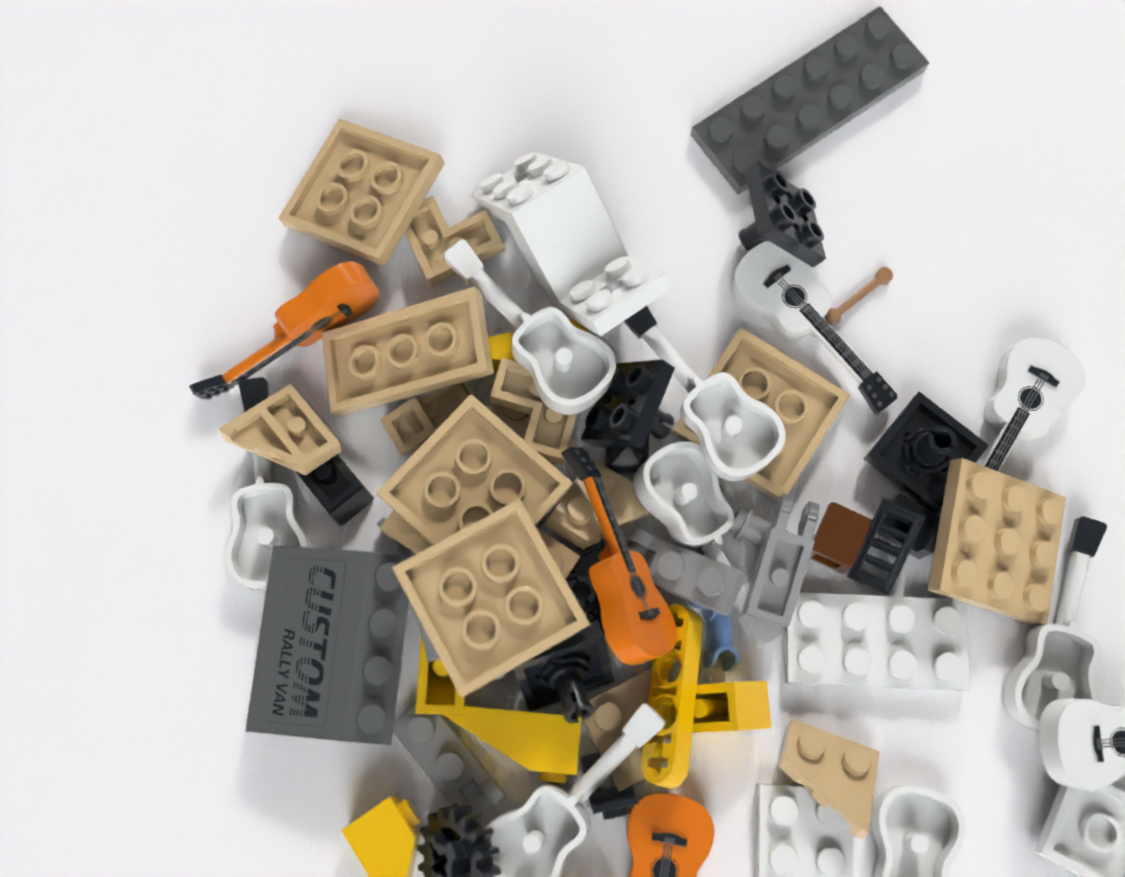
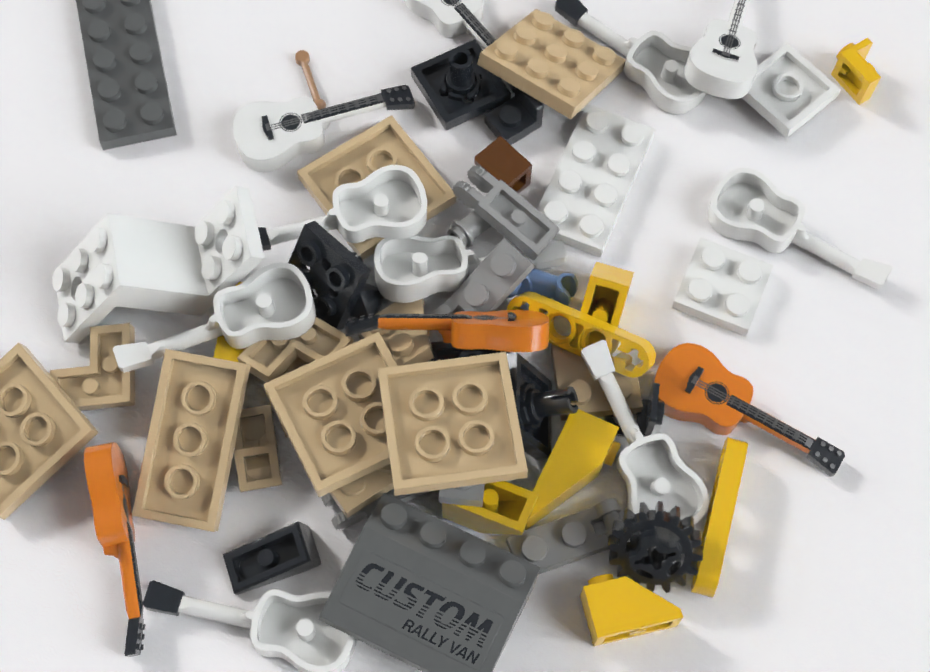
camera: 70 degrees left, 10 degrees down
(284, 432) = (213, 576): tan wing -> none
(782, 216) = (220, 100): black plate -> none
(832, 771) = (681, 244): tan wing -> none
(902, 513) = (524, 116): black slope -> none

